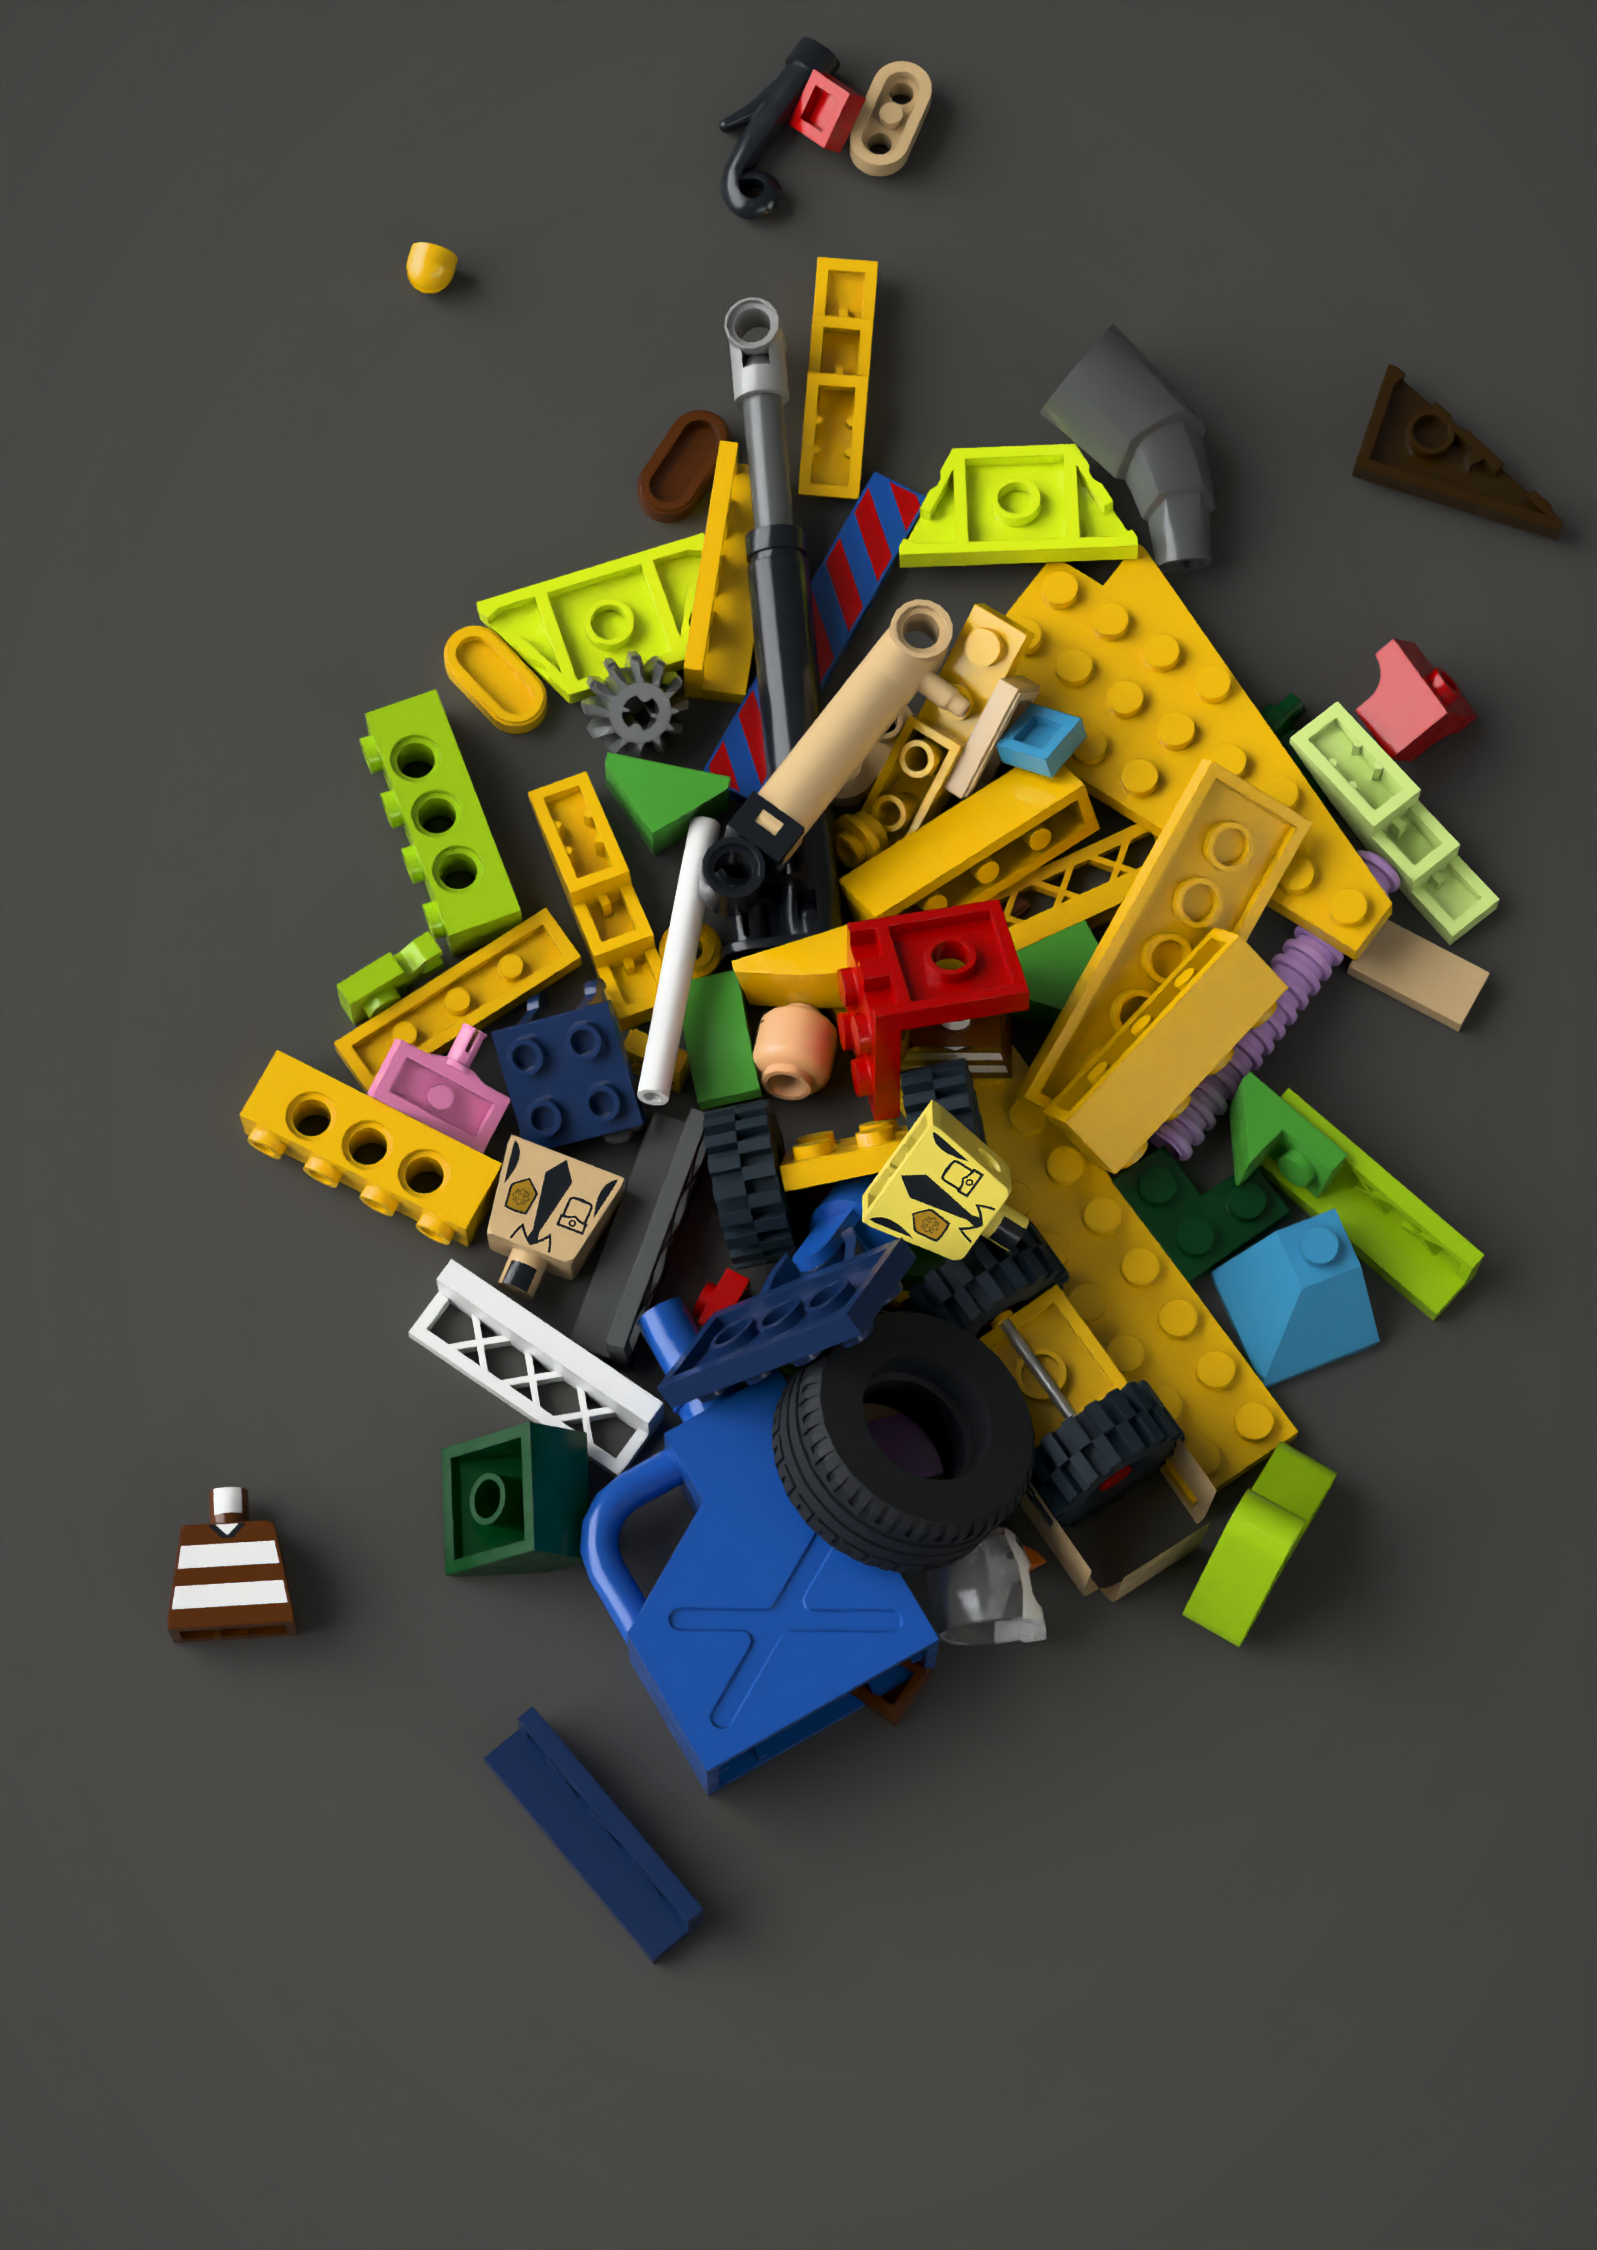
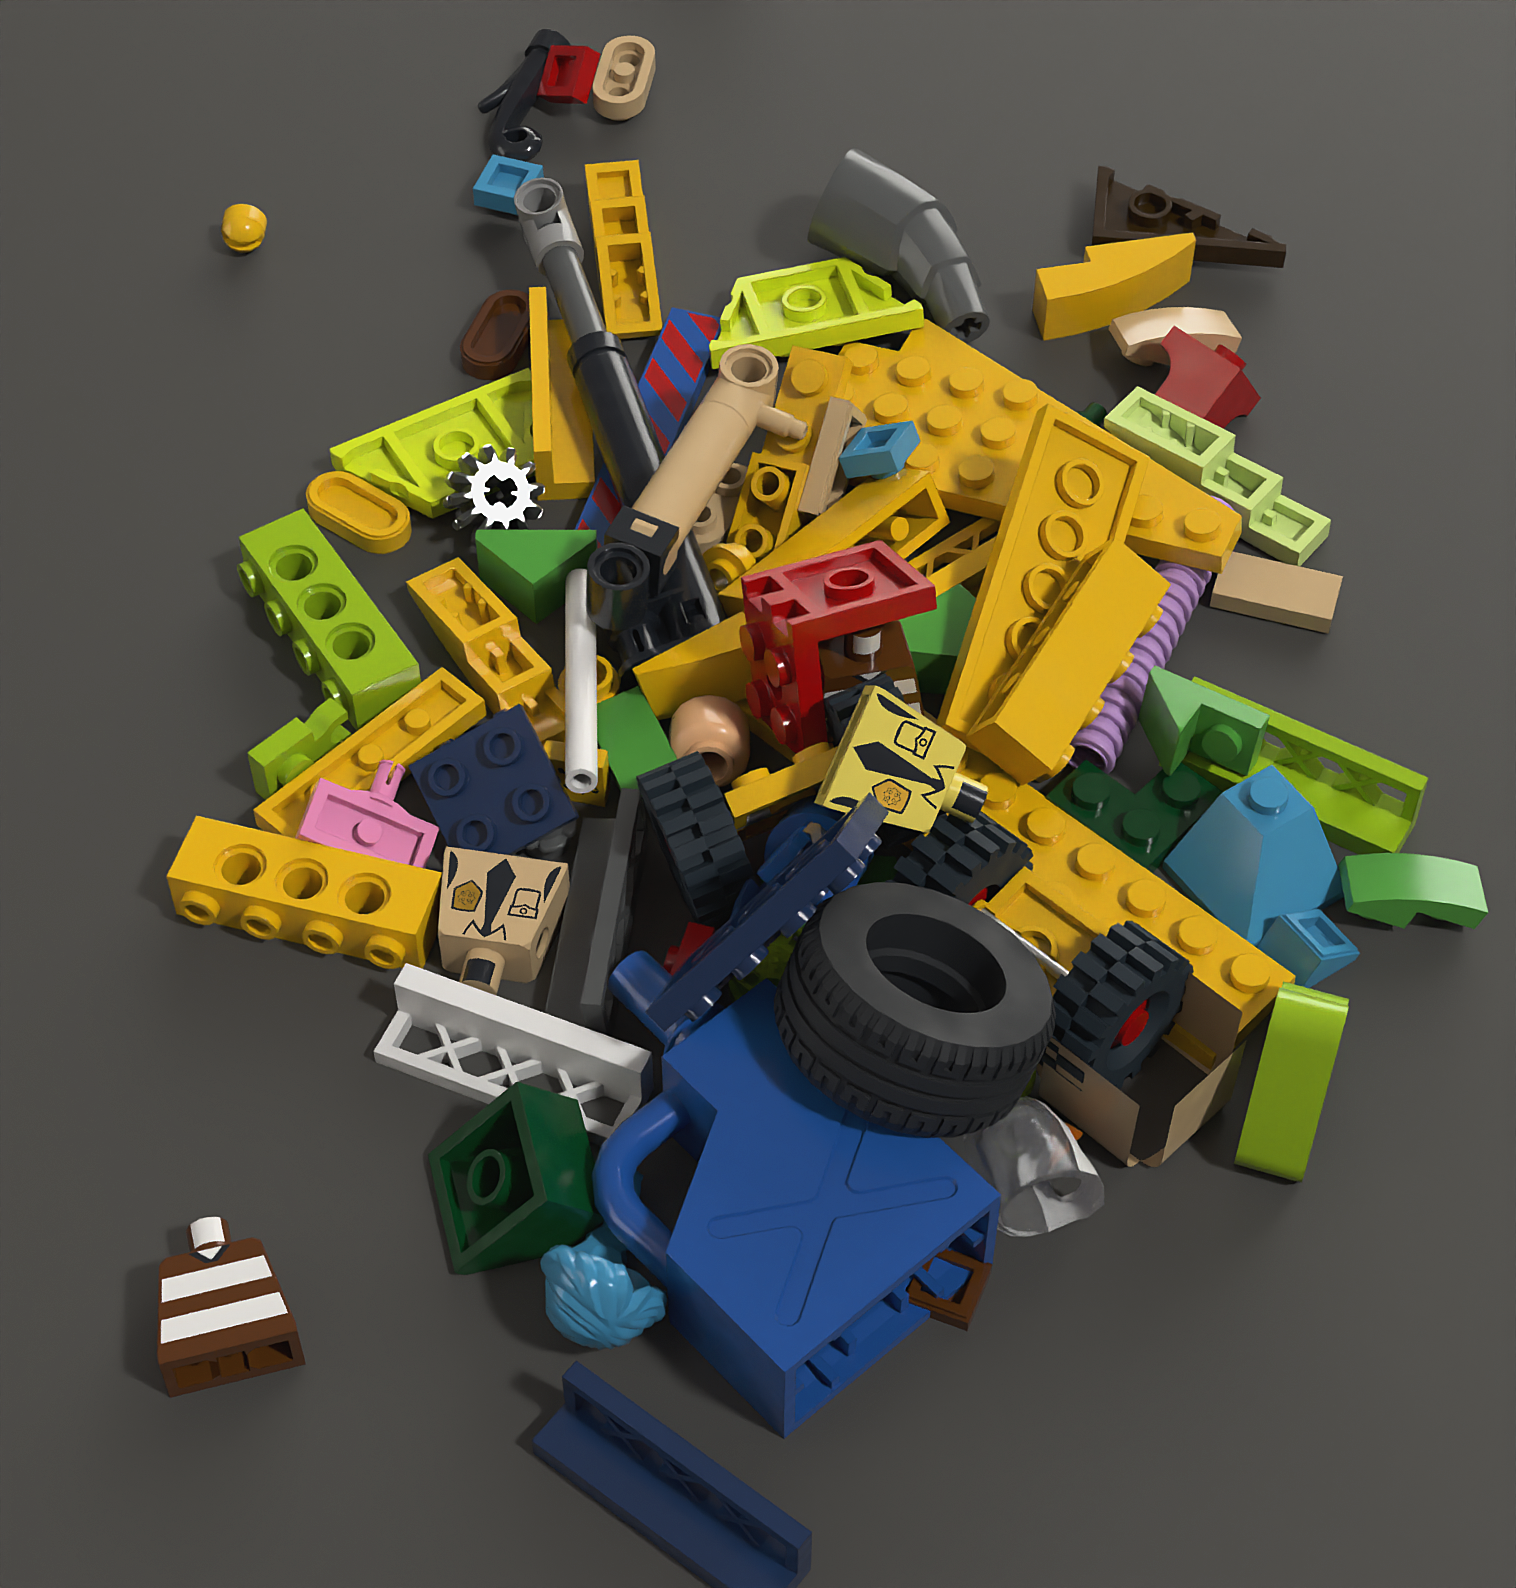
camera: 10 degrees left, 20 degrees down
(566, 1636) = (595, 1295): none -> dark azure hair
(730, 258) = (500, 182): none -> dark azure plate
(1322, 1397) = (1308, 946): none -> dark azure slope
(1357, 535) = (1110, 283): none -> yellow slope
(1407, 612) = (1143, 331): none -> tan slope
(1439, 1356) = (1401, 884): none -> bright green slope

